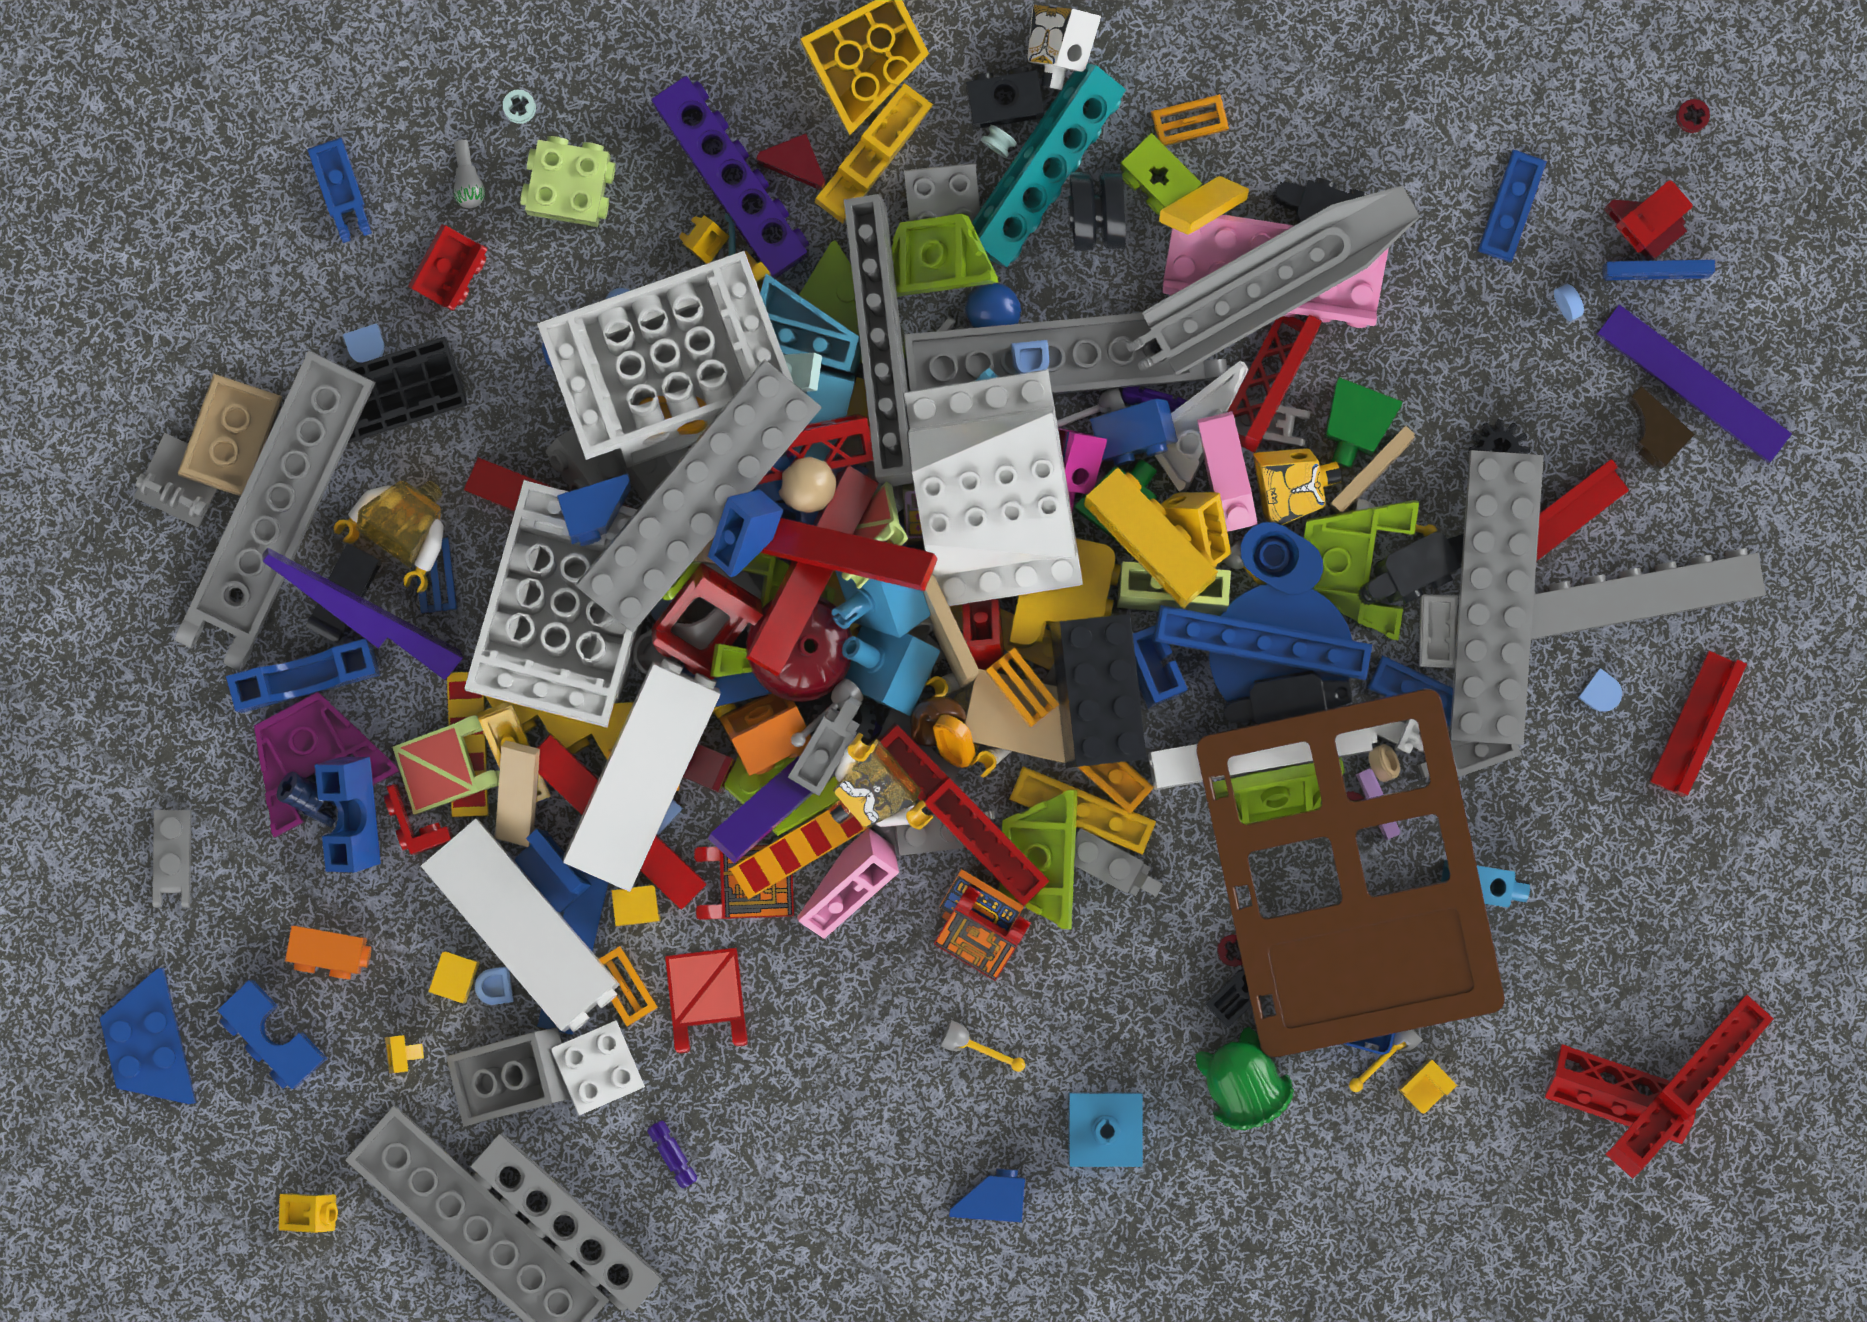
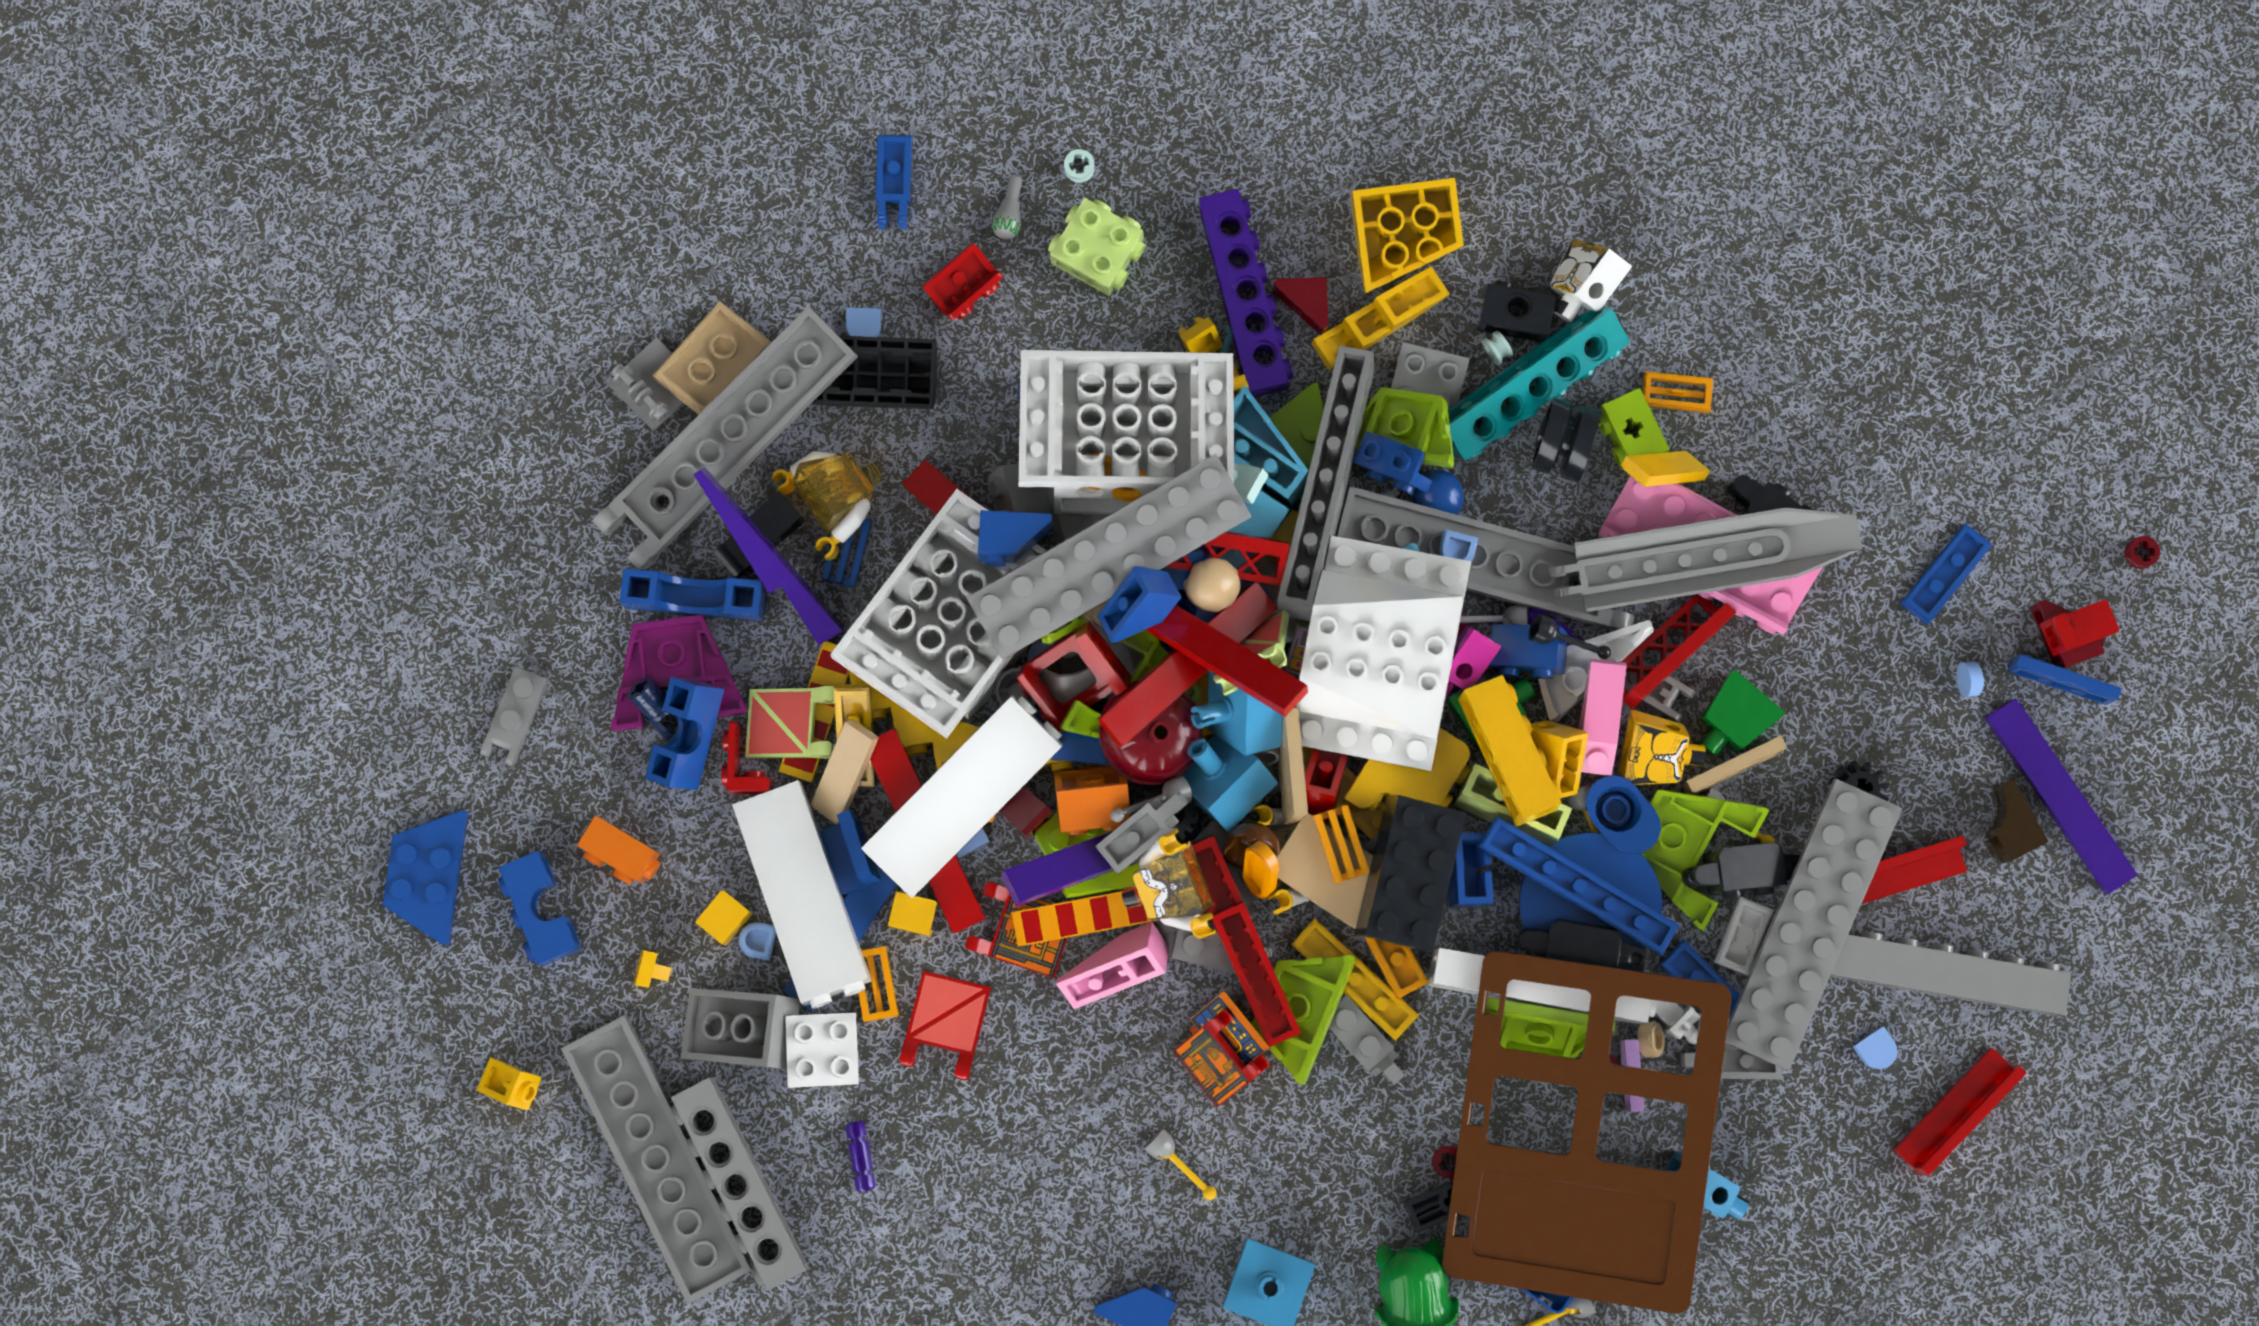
camera: 25 degrees right, 5 degrees down
(937, 294) = (1392, 460): none -> blue bracket
(1143, 408) = (1545, 630): none -> black hinge

